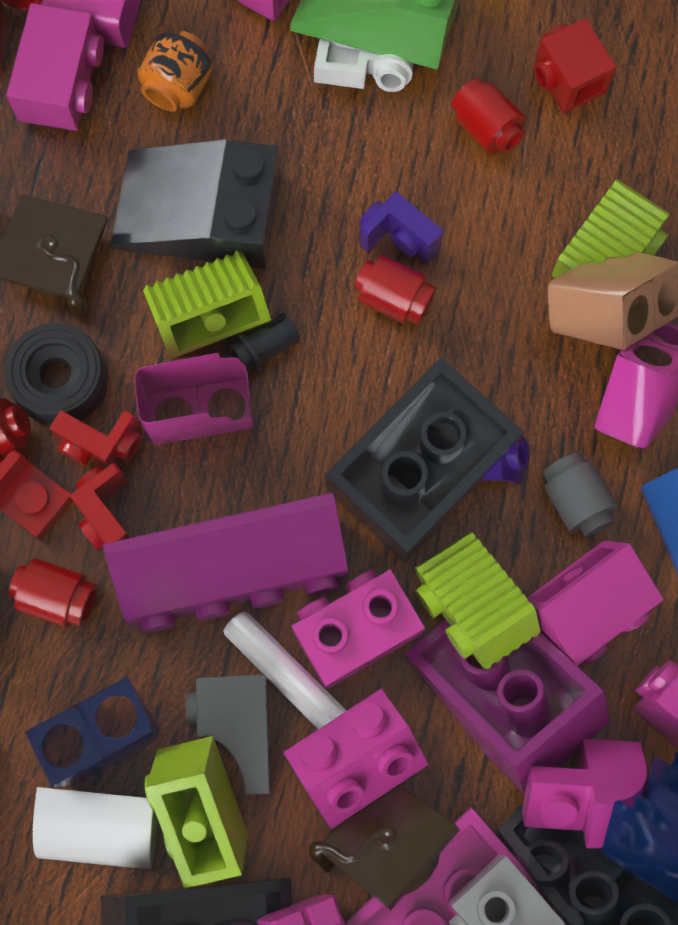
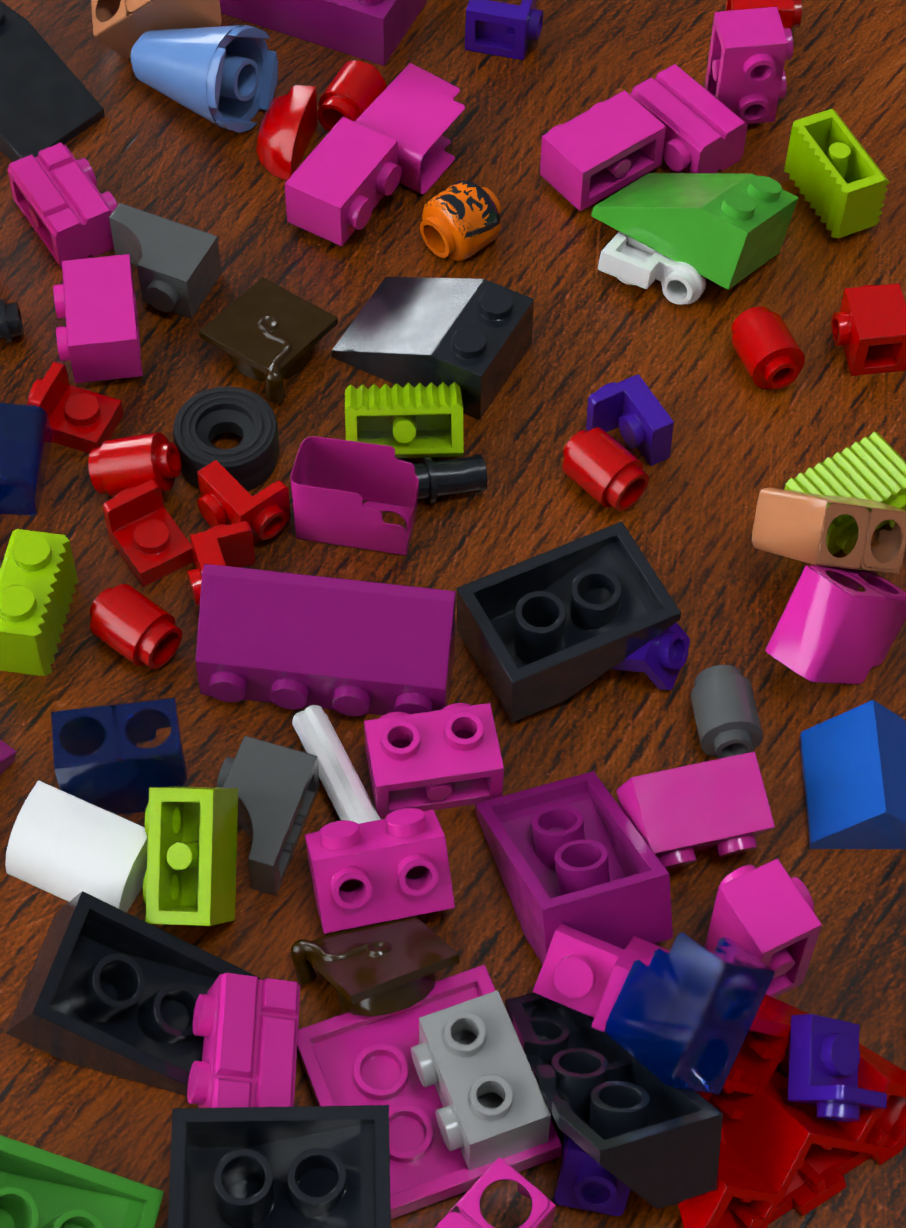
camera: 20 degrees right, 20 degrees down
(477, 600) = (570, 765): lime brick -> none

